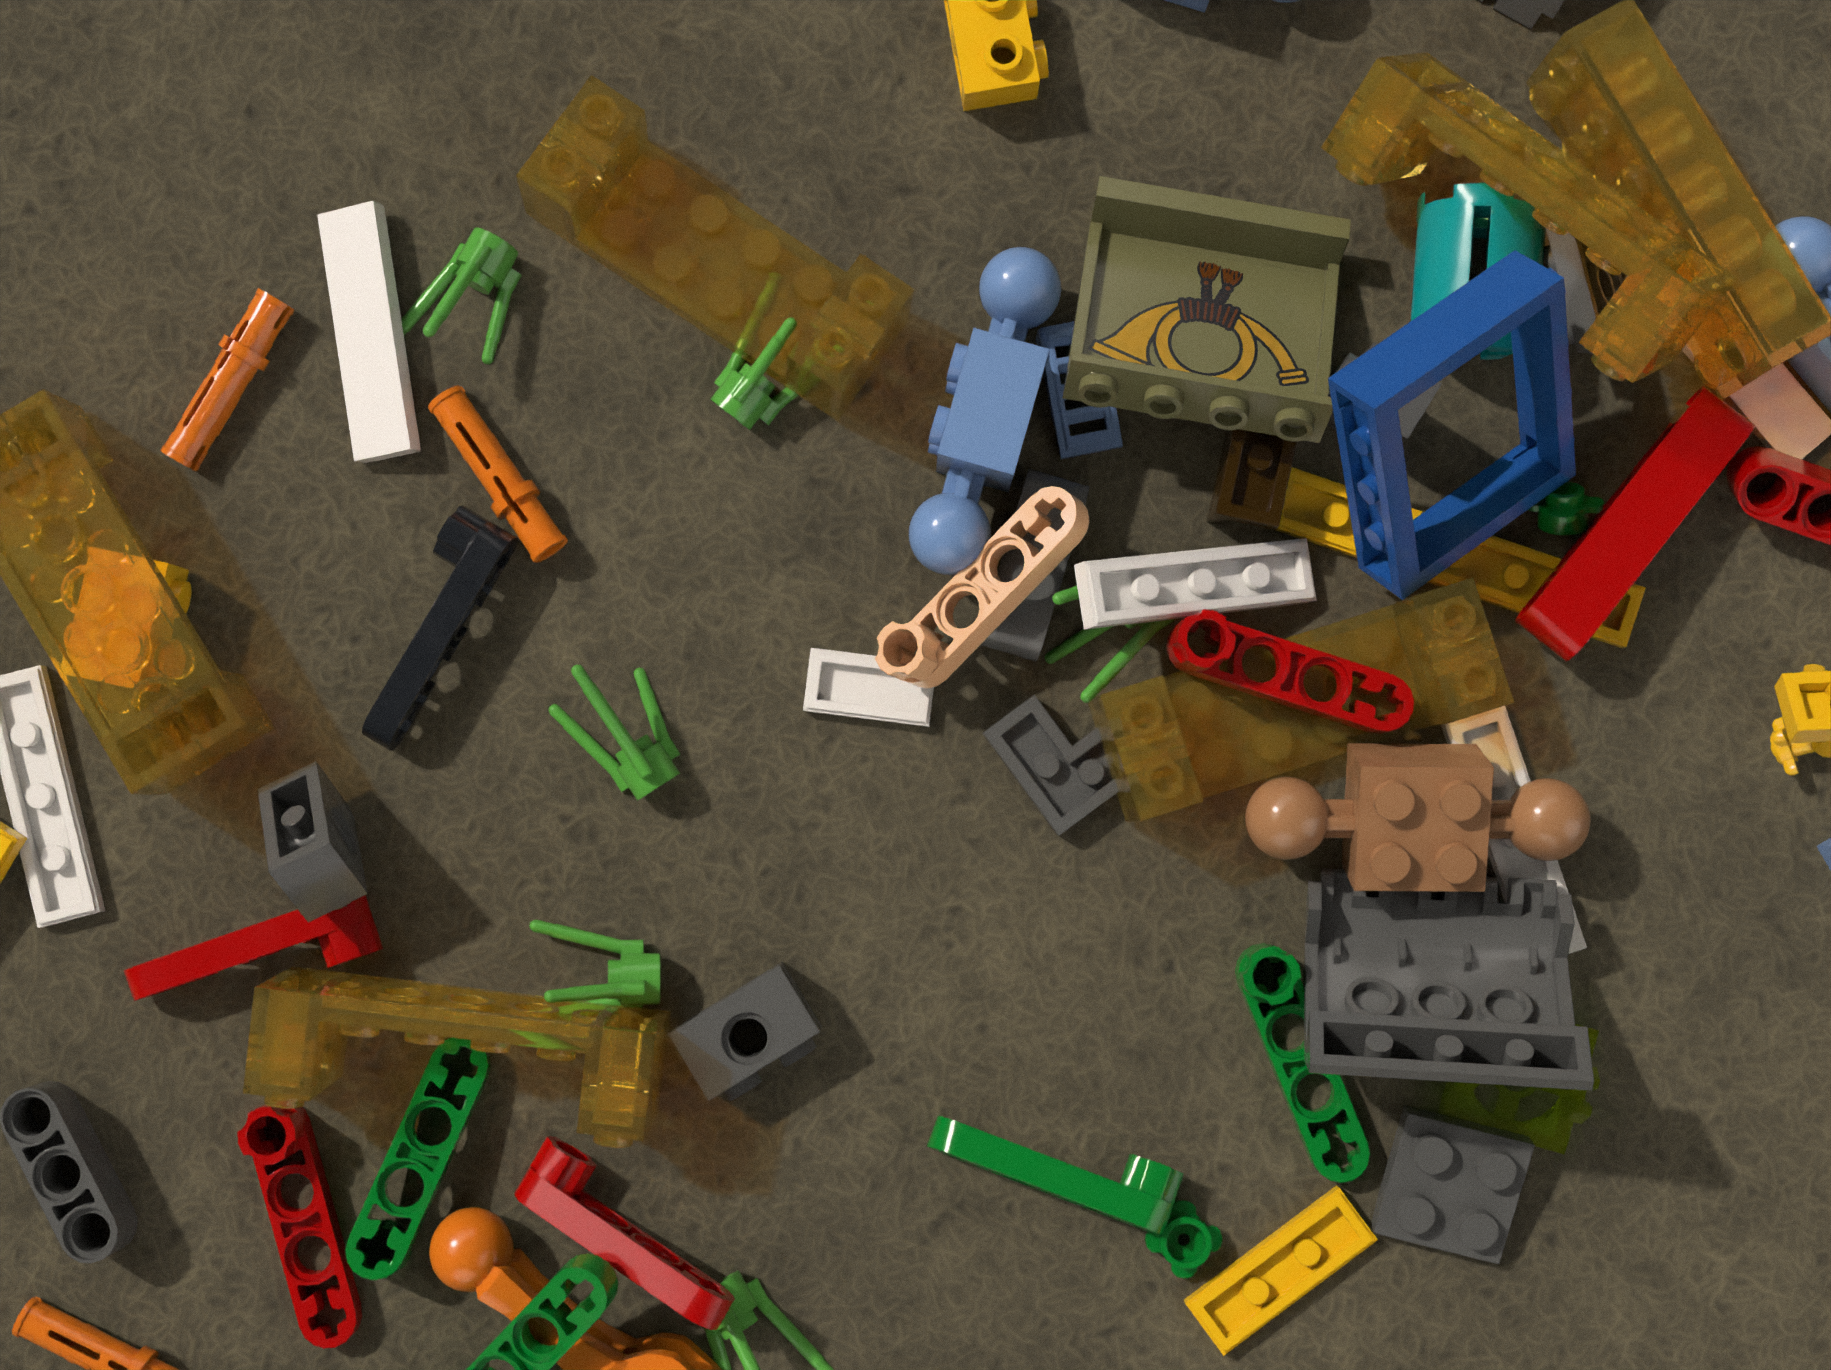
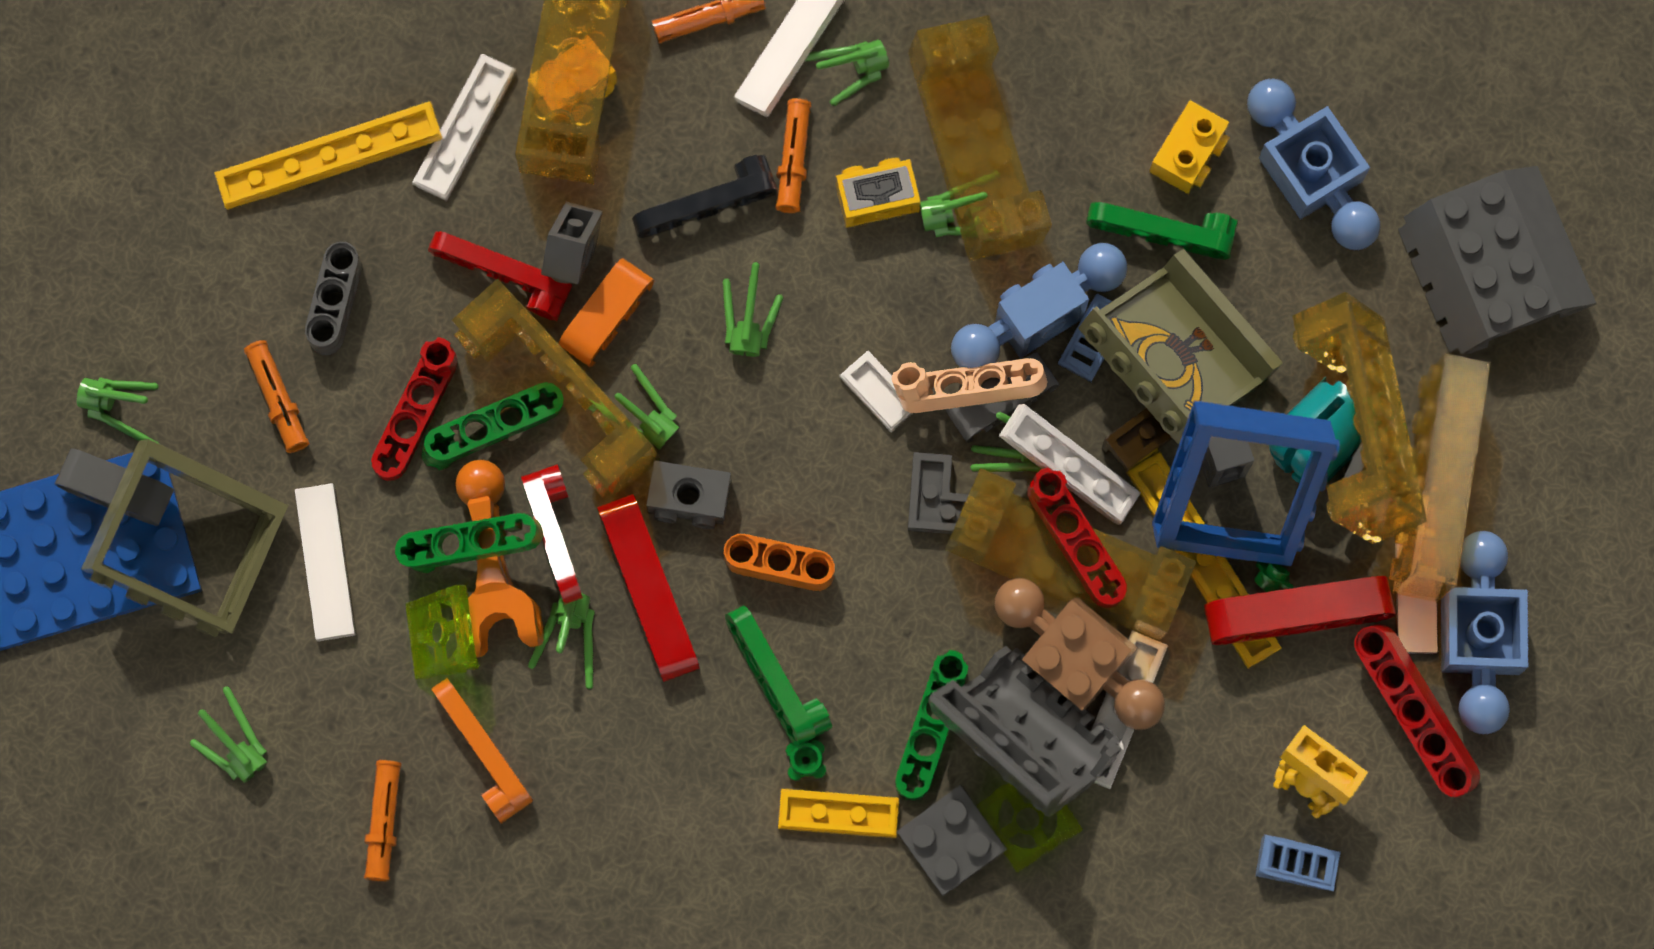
camera: 40 degrees right, 10 degrees down
(433, 885) = (604, 311): none -> orange beam
(646, 430) = (877, 192): none -> brick
(798, 1198) = (648, 587): none -> red beam
(919, 1048) = (765, 549): none -> orange beam
(1120, 133) = (1211, 240): none -> green beam

